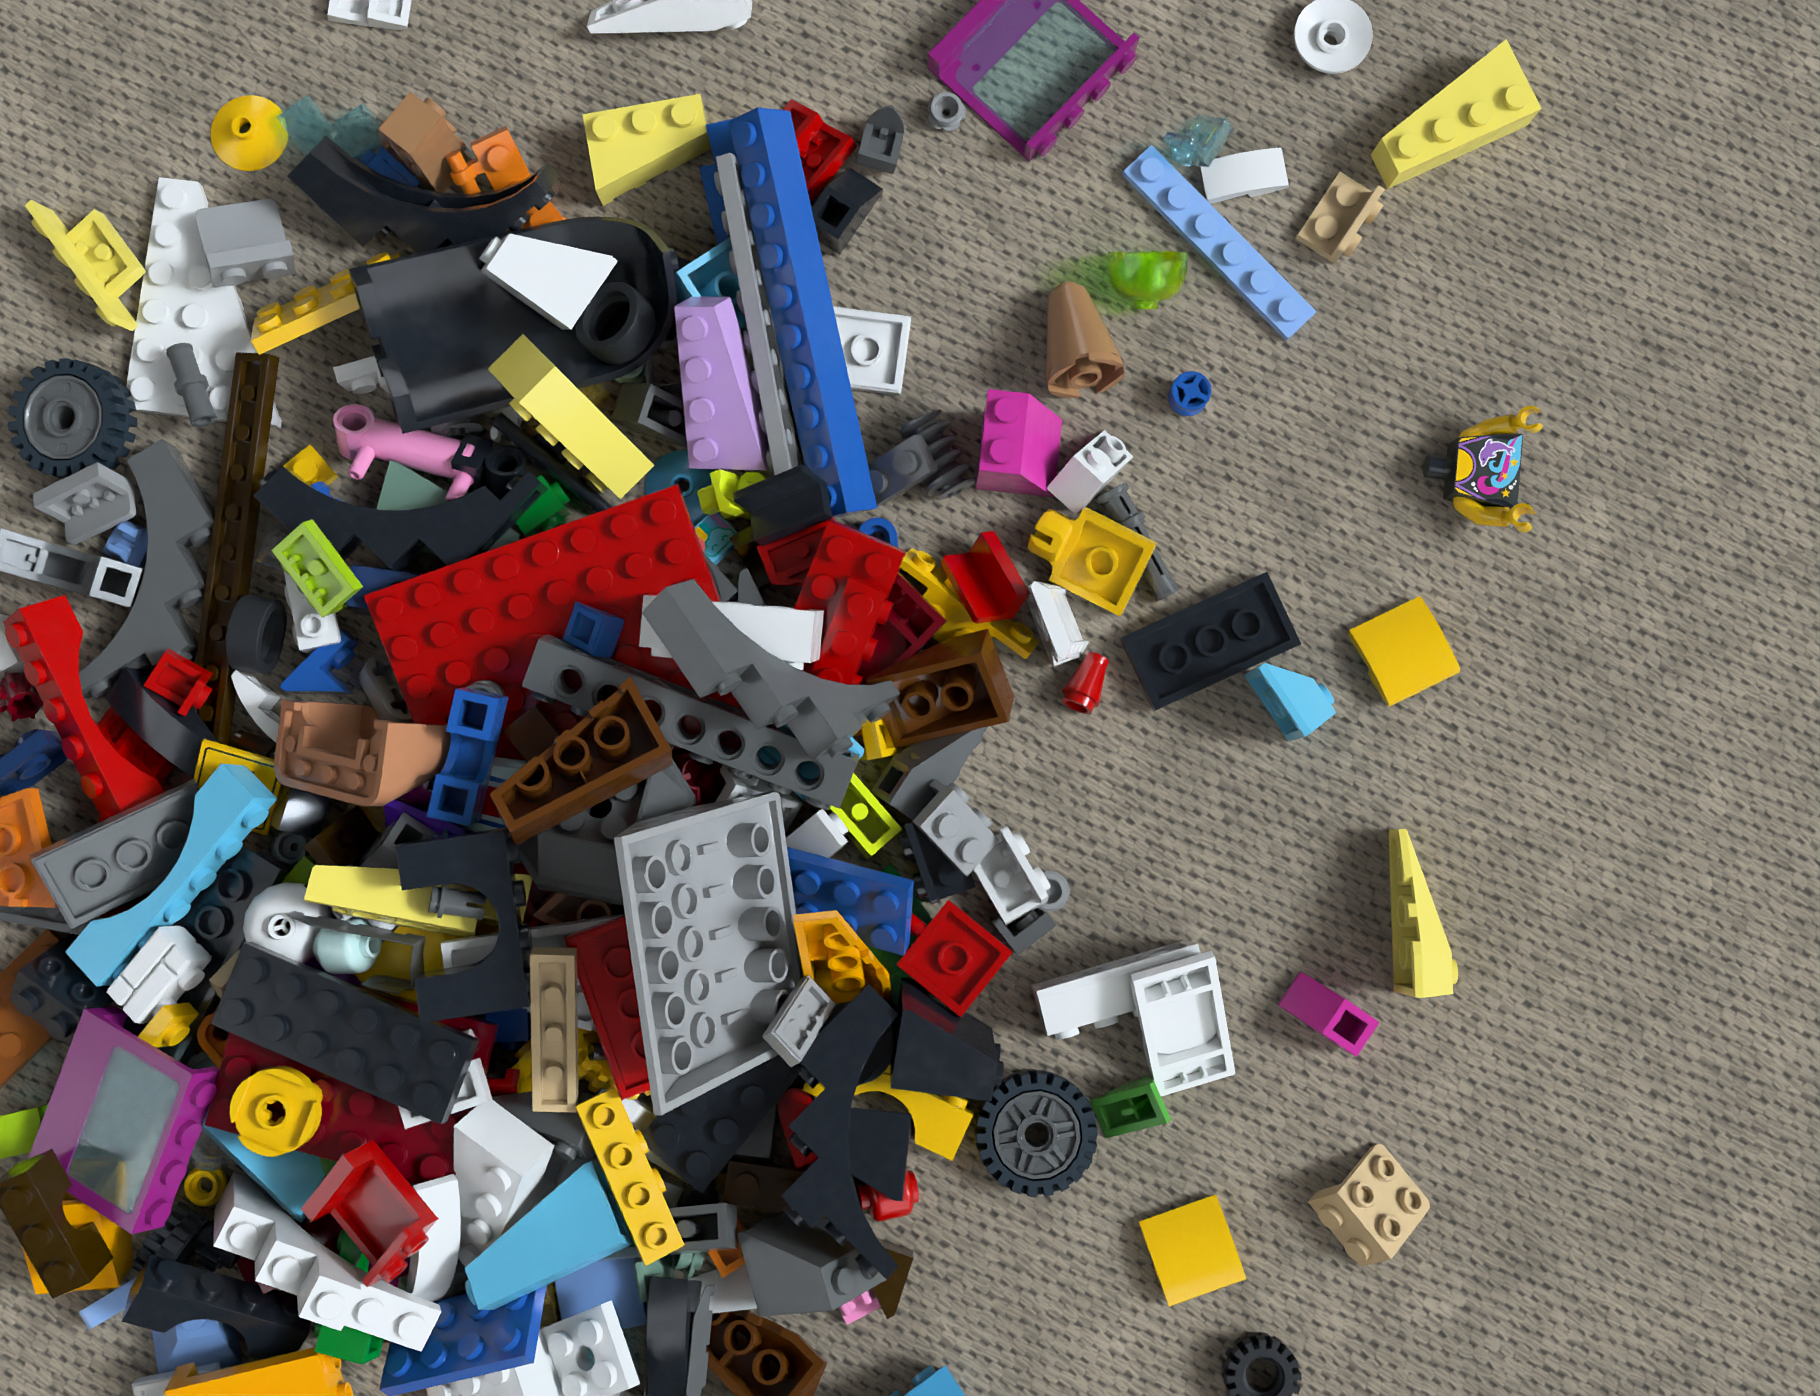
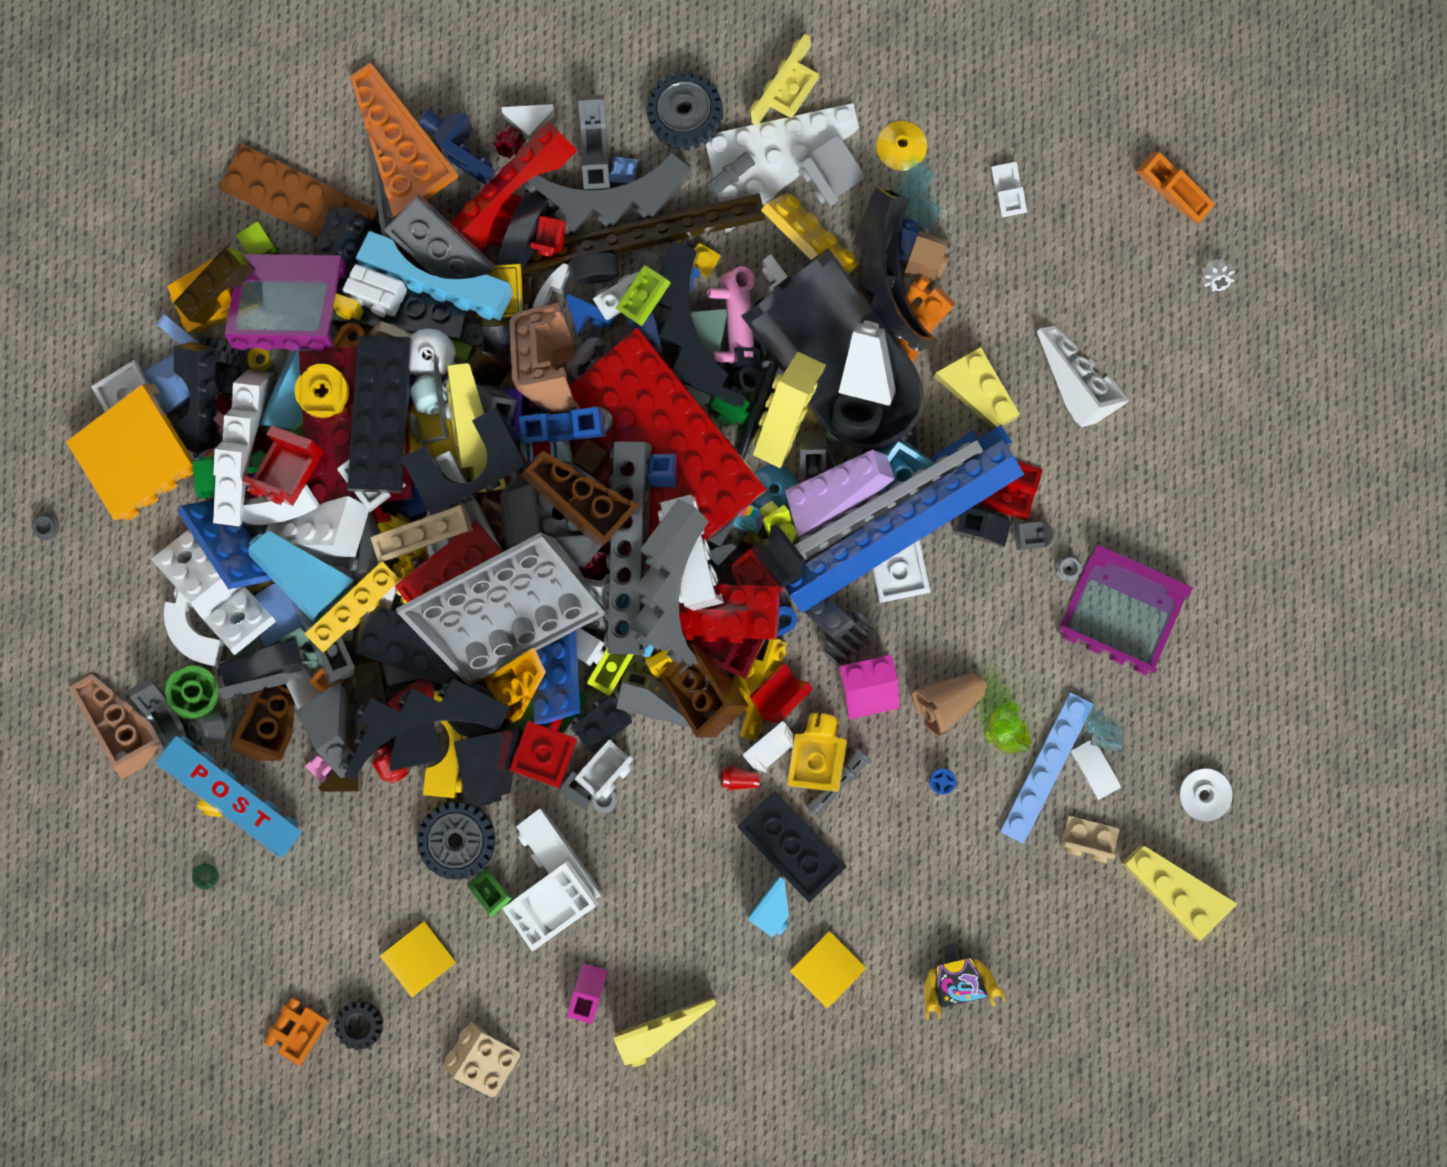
camera: 75 degrees right, 0 degrees up
(88, 501) = (638, 139): light grey bracket -> none
(453, 902) = (474, 451): dark grey pin -> none
(799, 1021) = (474, 673): light grey plate -> none
(955, 828) = (620, 728): light grey bracket -> none
(1089, 471) = (871, 736): white slope -> none

